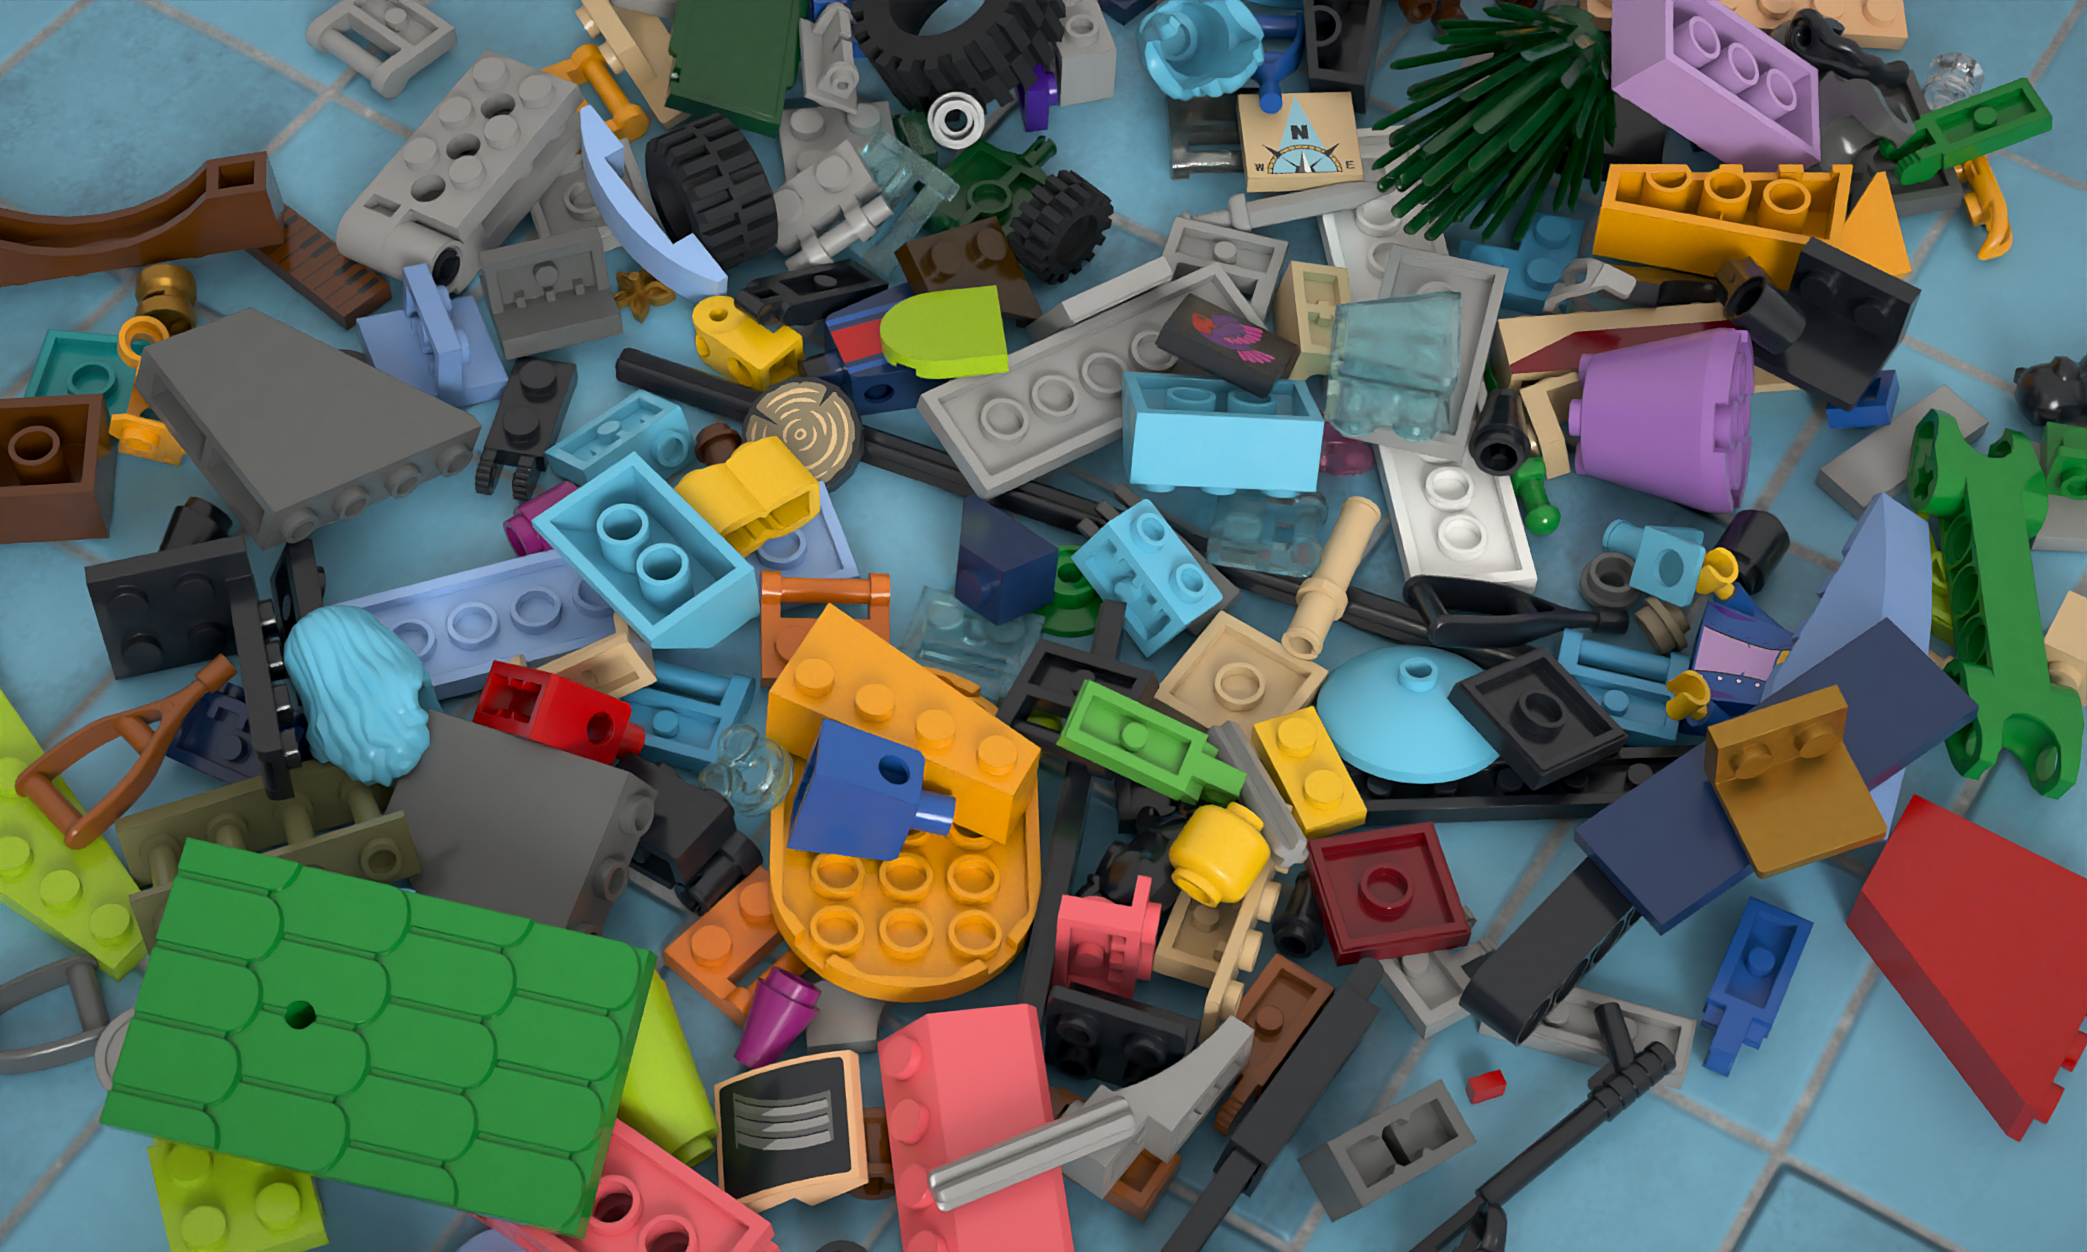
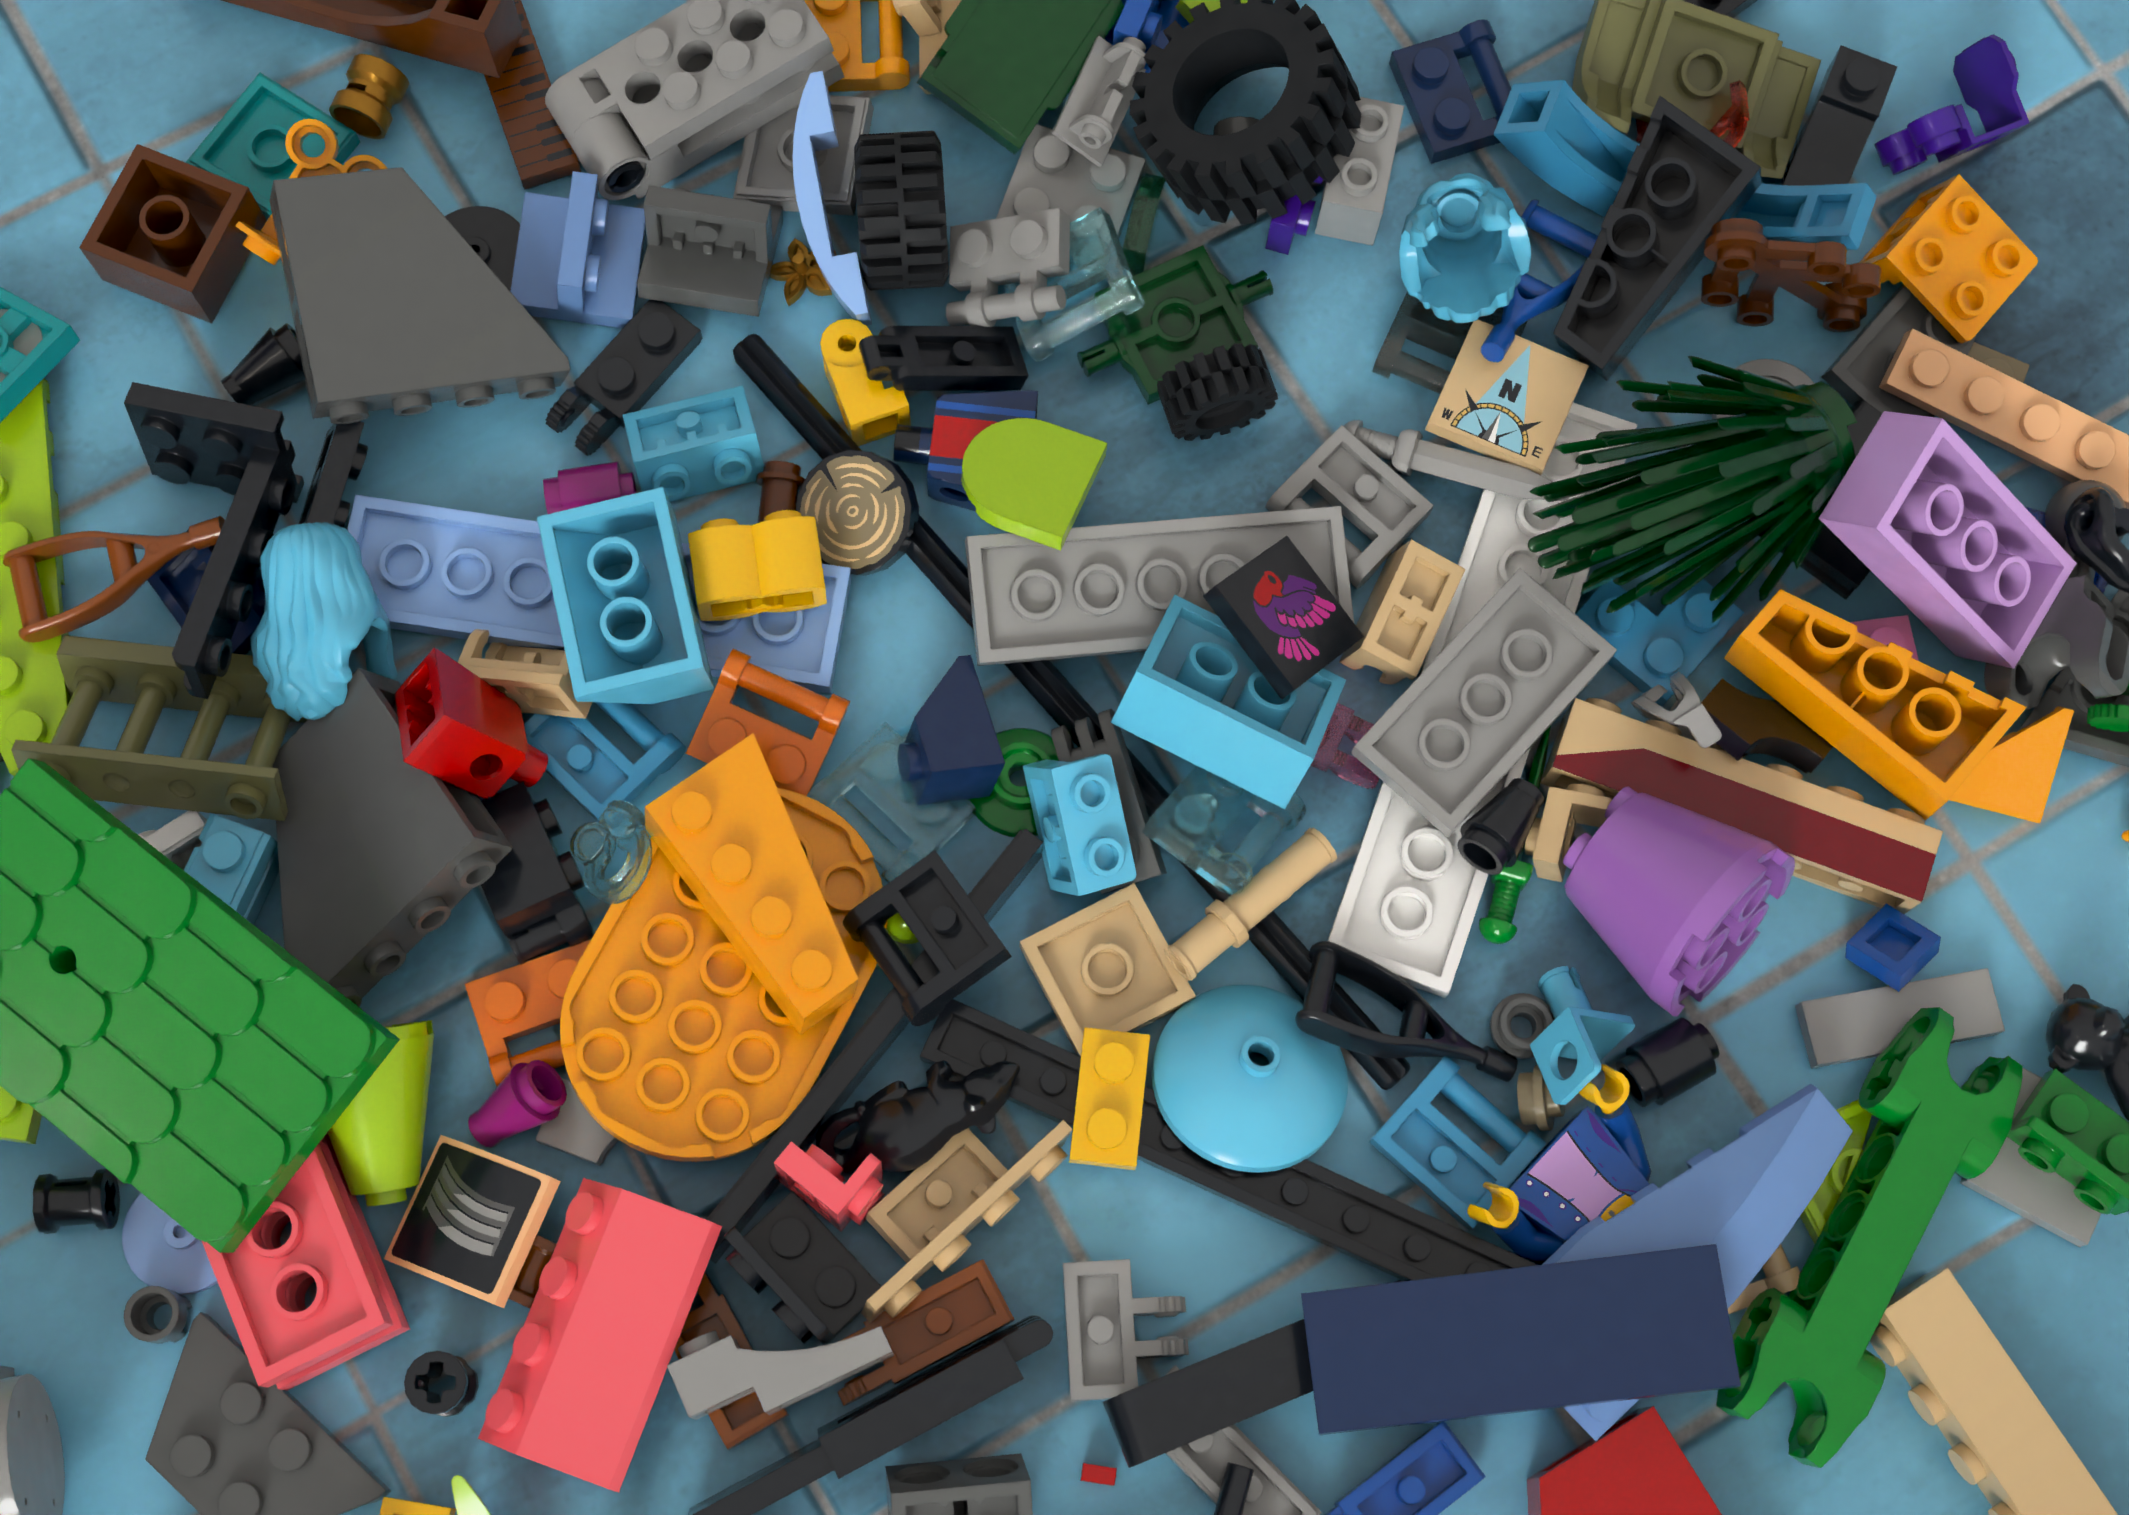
camera: 25 degrees right, 20 degrees up
(863, 796) = (655, 943): blue torso -> none
(959, 137) = (1179, 236): plate -> none
(968, 259) = (1104, 401): dark brown wing -> none
(1031, 1153) = (628, 1377): light grey axle -> none
(1100, 299) = (1206, 497): light grey tile -> none
(1148, 747) = (950, 1026): bright green hinge -> none
(1219, 854) = (962, 1160): yellow head -> none
(1260, 795) = (1041, 1106): light grey axle -> none
(1300, 927) = (1034, 1229): black pin -> none
(1385, 893) = (1107, 1255): dark red tile -> none
(1394, 365) = (1420, 725): clear light blue piece -> none
(1537, 718) = (1346, 1153): black tile -> none
(1758, 305) = (1824, 821): black piece -> none
(1791, 783) = (1507, 1384): pearl gold bracket -> none
(1850, 329) = (1888, 879): black bracket -> none

